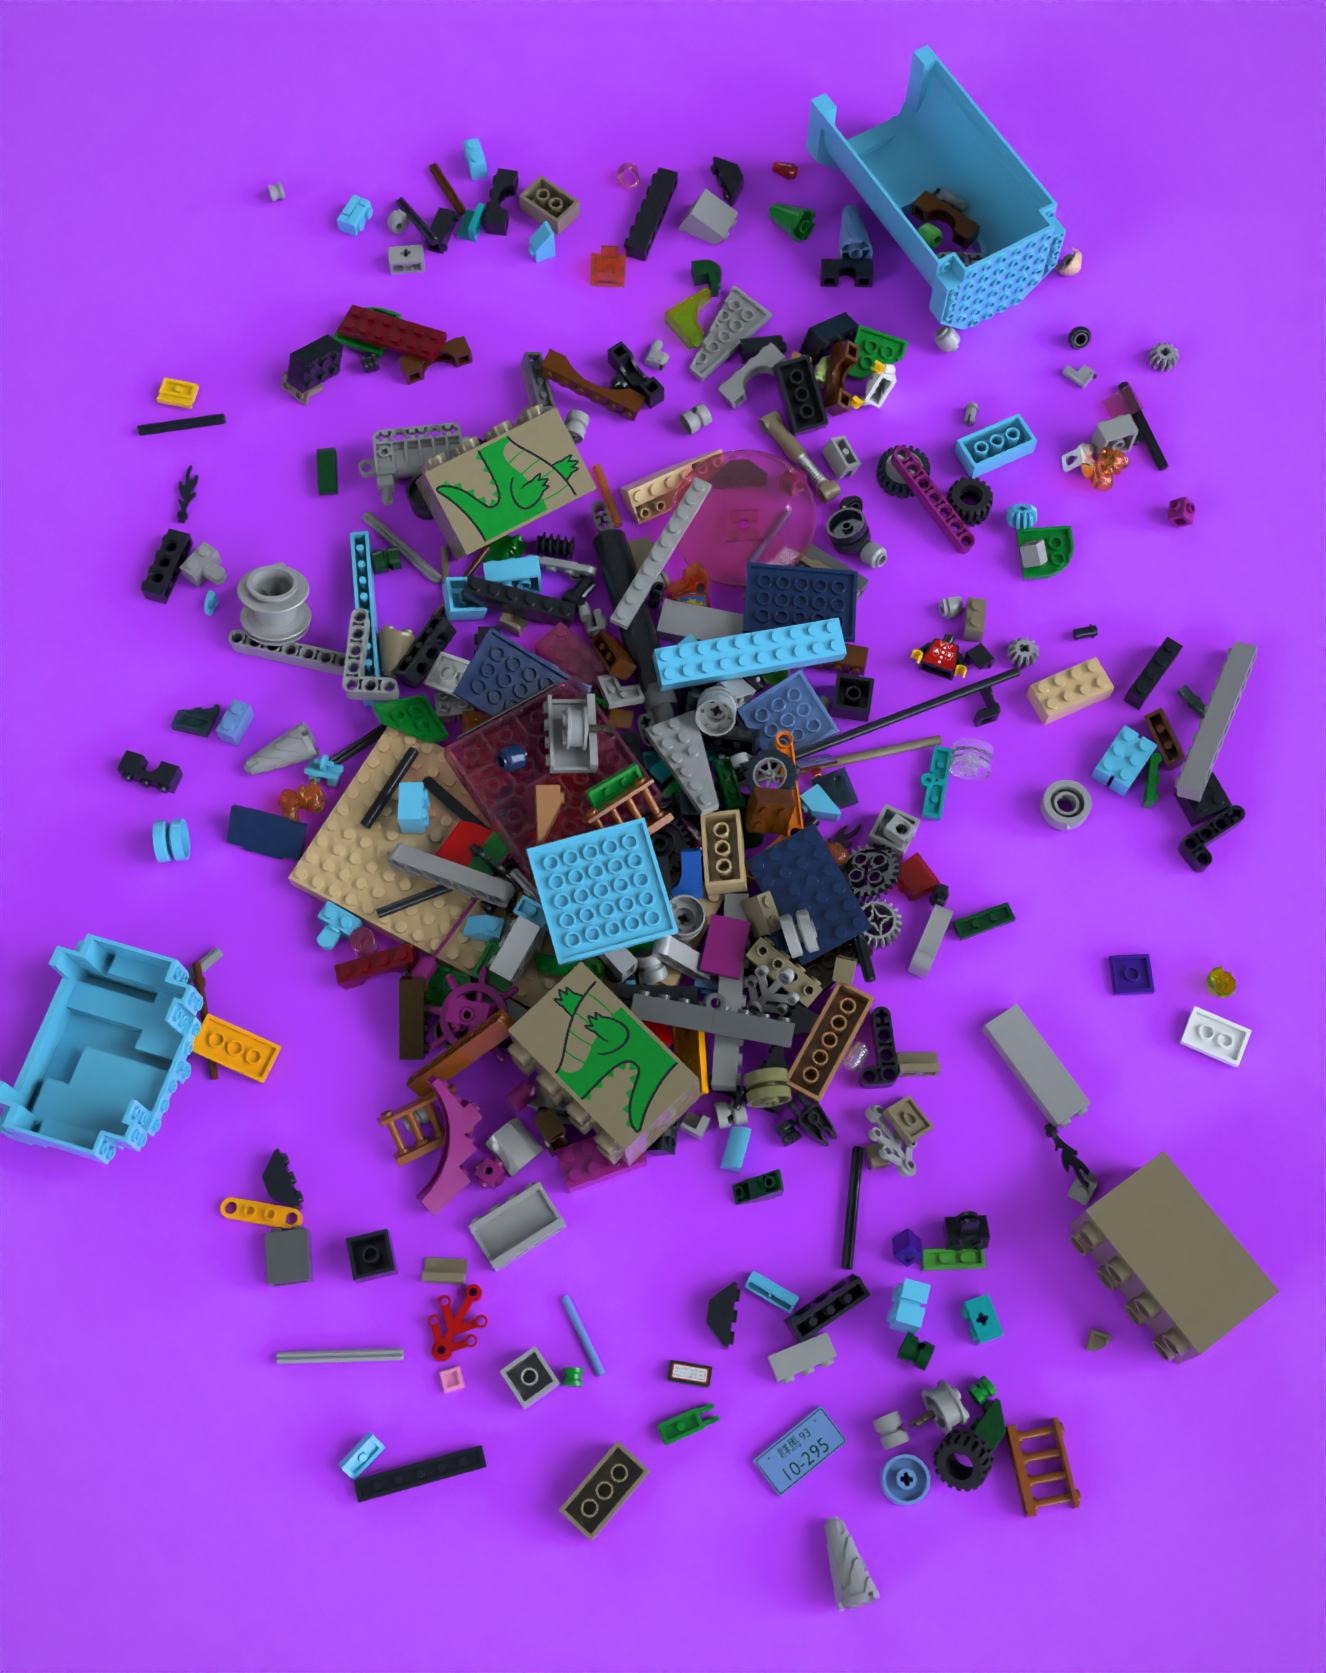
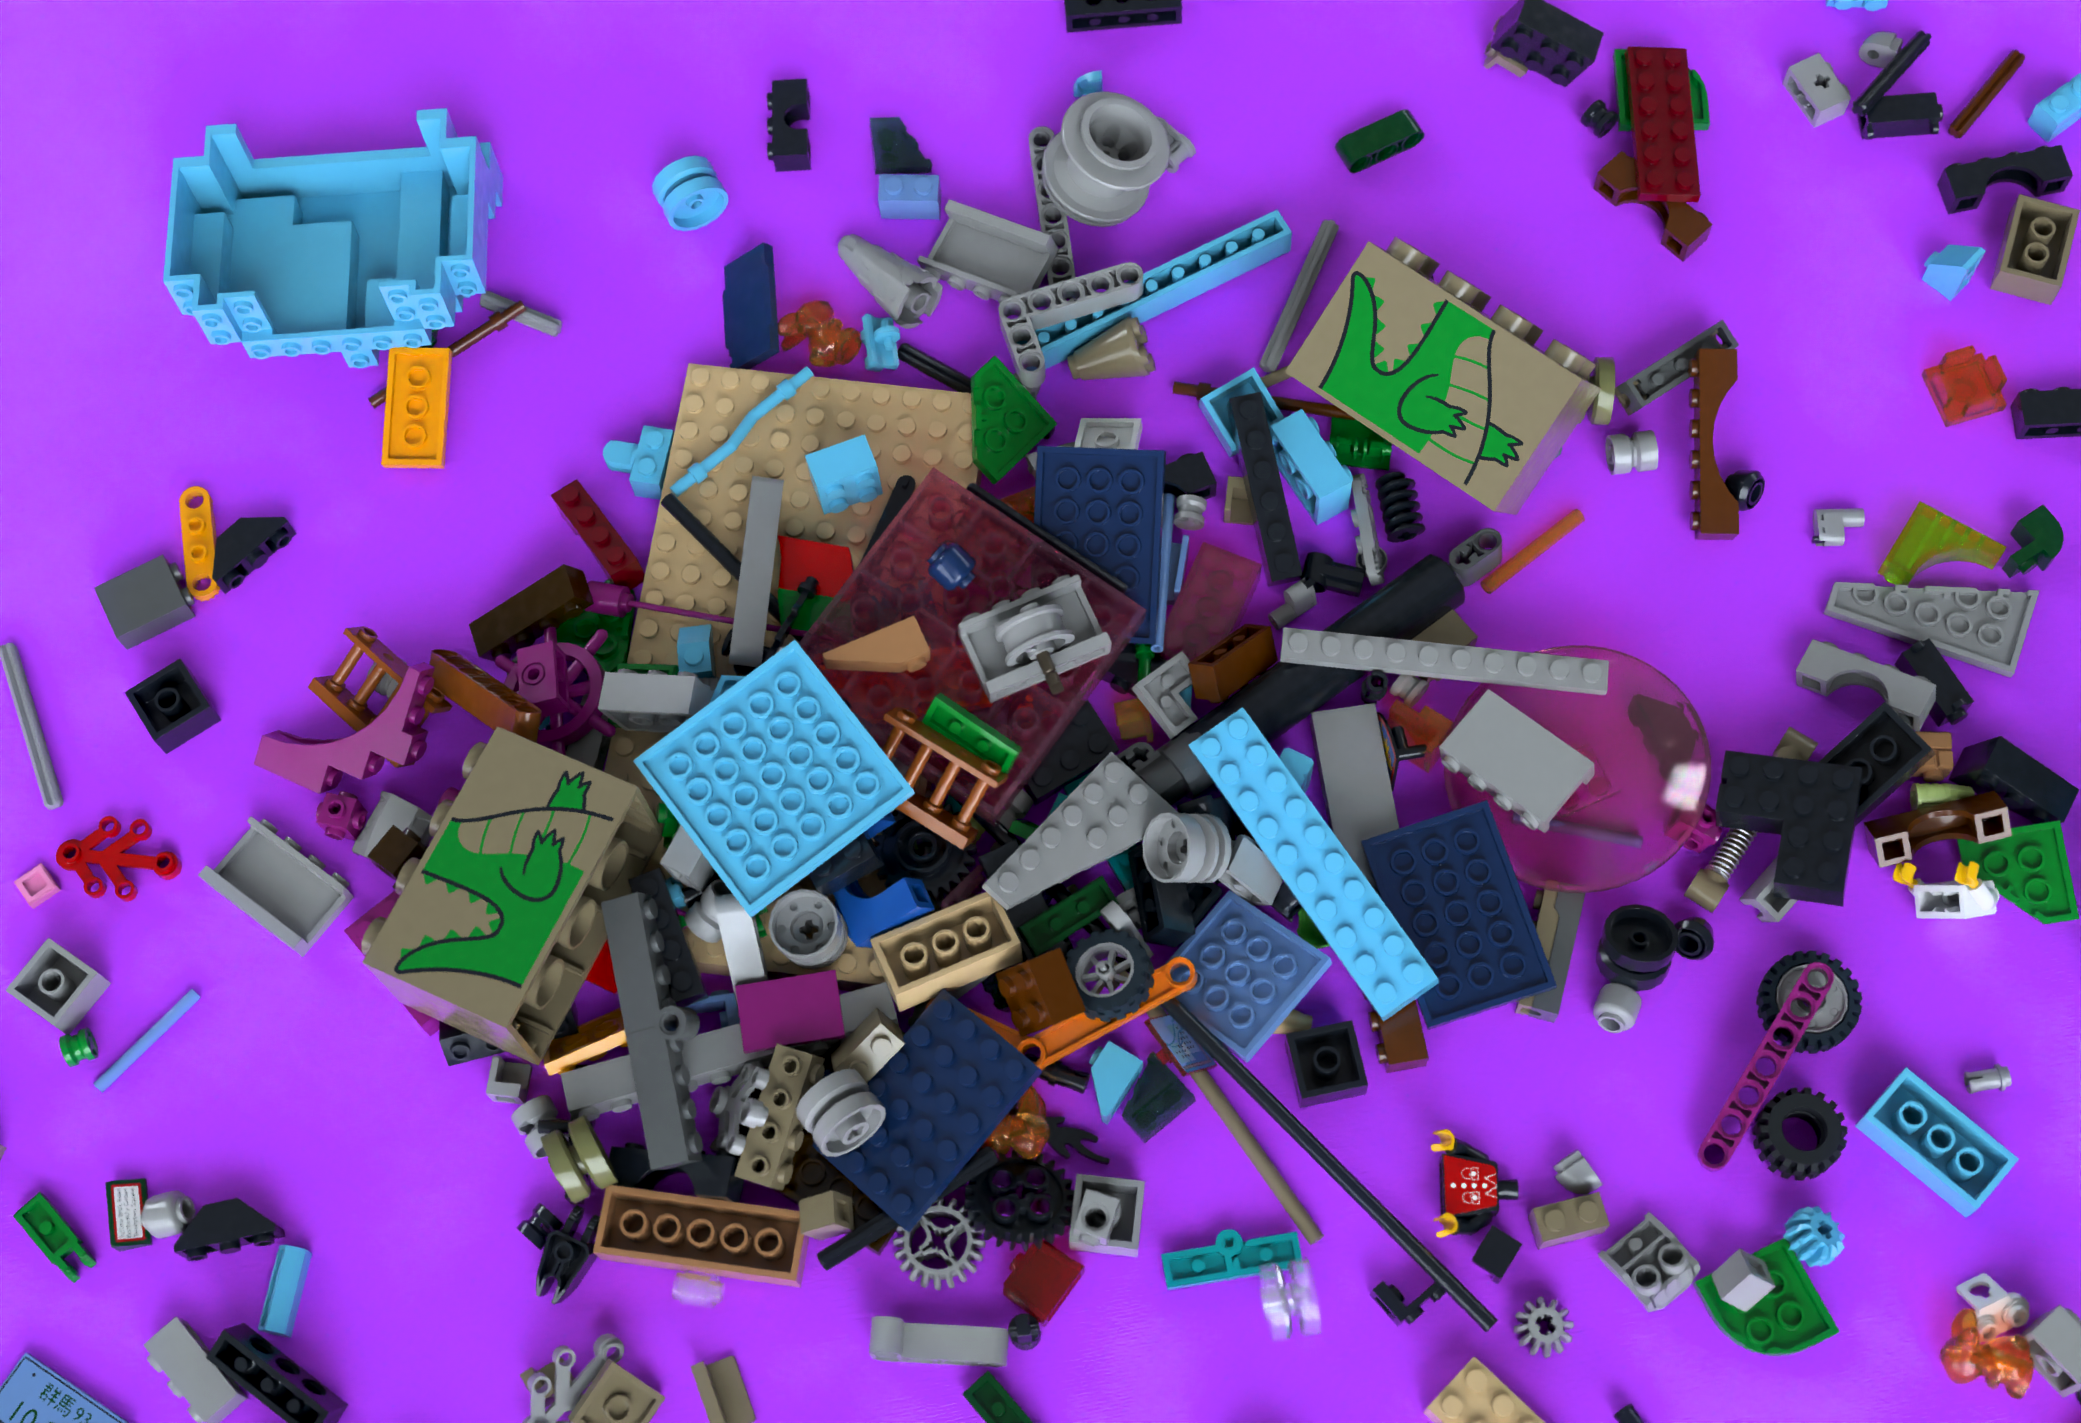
camera: 75 degrees right, 0 degrees up
(204, 565) = (1142, 48): light grey brick -> none
(299, 691) = (989, 254): none -> light grey panel
(363, 942) = (630, 506): clear pink wheel -> none
(367, 891) = (699, 471): none -> medium azure bar
(386, 559) = (1263, 280): dark green wheel -> none
(389, 788) = (877, 435): black axle -> none
(403, 457) = (1454, 236): light grey piece -> none
(424, 651) = (1143, 388): black brick -> none
(445, 1271) = (185, 814): dark tan panel -> none
(472, 223) = (1936, 154): teal panel -> none
(600, 623) = (1299, 619): light grey bracket -> none
(624, 363) = (1774, 504): black arch -> none
(656, 492) = (1561, 612): wedge -> none
(695, 418) = (1739, 627): light grey wheel -> none
(700, 1348) = (167, 1214): none -> light grey head
(731, 541) = (1515, 761): none -> light grey panel
(735, 1148) = (489, 1158): medium azure brick -> none
(759, 1188) = (434, 1212): dark green slope -> none
(816, 420) = (1805, 804): none -> black piece
(852, 1208) = (453, 1370): black axle -> none
(880, 1046) = (728, 1321): black beam -> none
(1007, 592) = (1651, 1263): none -> light grey slope

